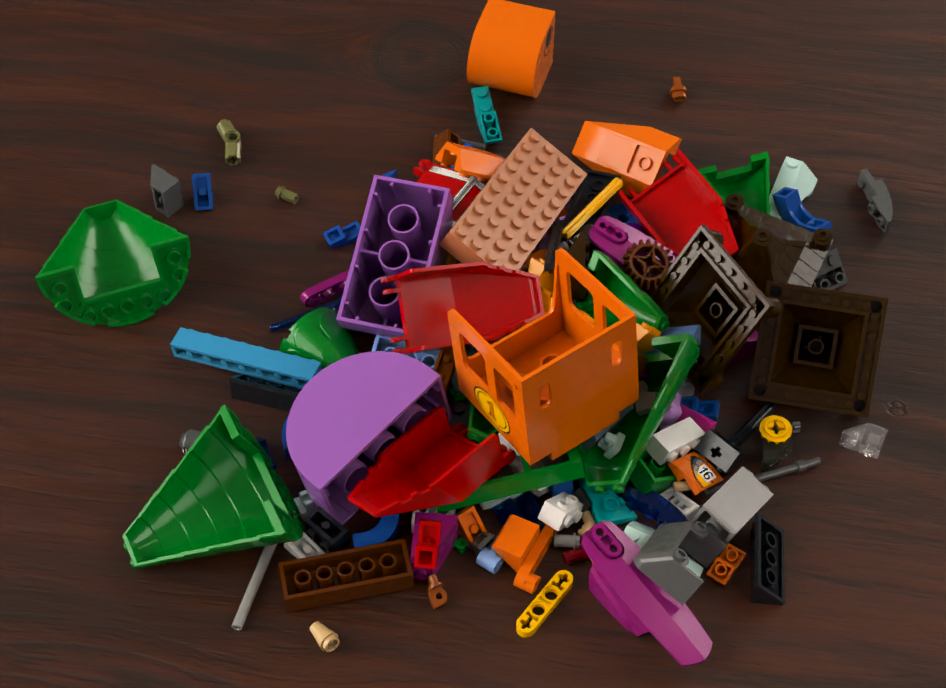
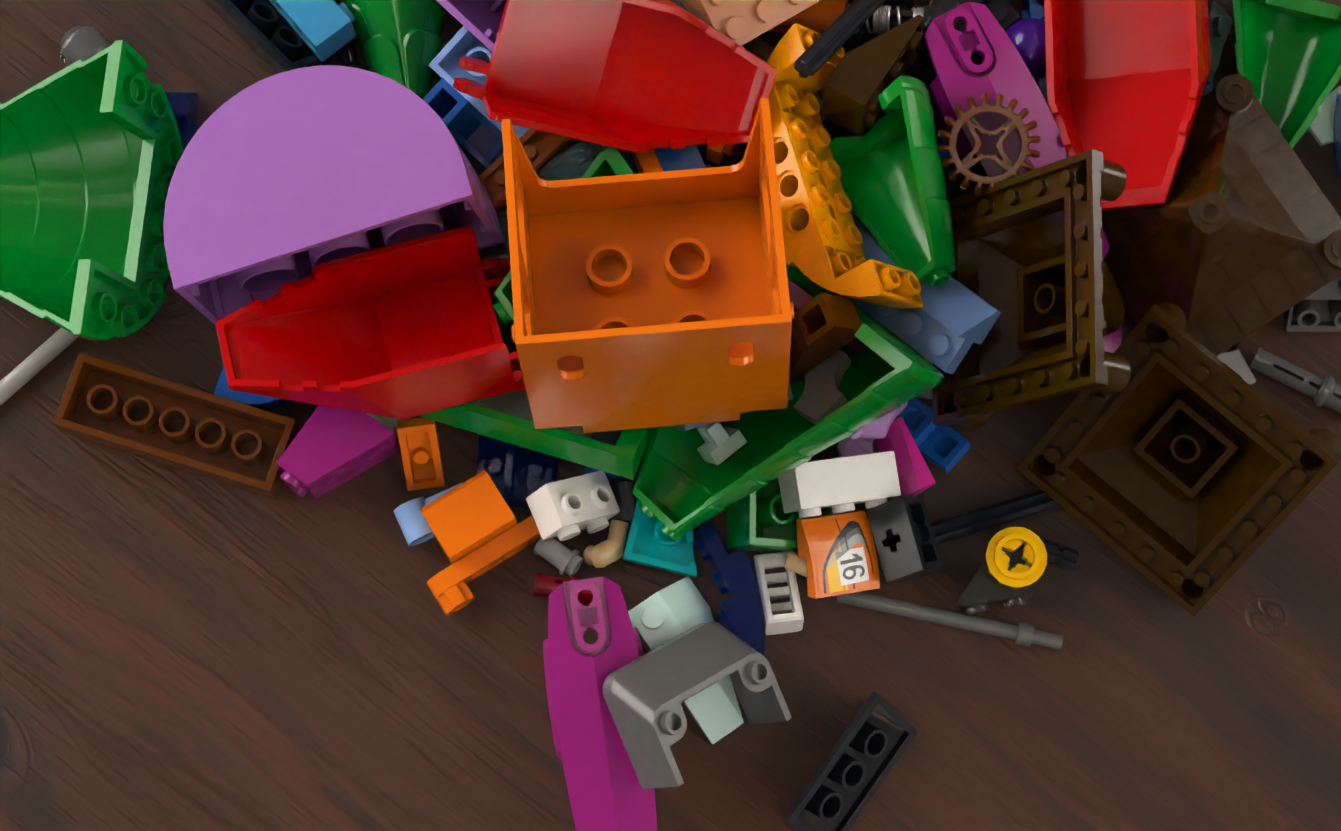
camera: 25 degrees right, 25 degrees up
(303, 547) = (155, 348): white slope -> none
(325, 637) = (91, 509): tan cone -> none
(326, 530) = (193, 334): black brick -> none
(428, 544) = (310, 463): red slope -> none
(435, 588) = (302, 523): dark orange piece -> none
(460, 545) = (391, 467): green piece -> none
(482, 540) = (420, 484): dark grey slope -> none
(543, 602) = (458, 646): yellow beam -> none
(726, 564) = (782, 739): orange slope -> none
(733, 505) = (855, 652): light grey slope -> none
(864, 439) = (1165, 649): clear slope -> none

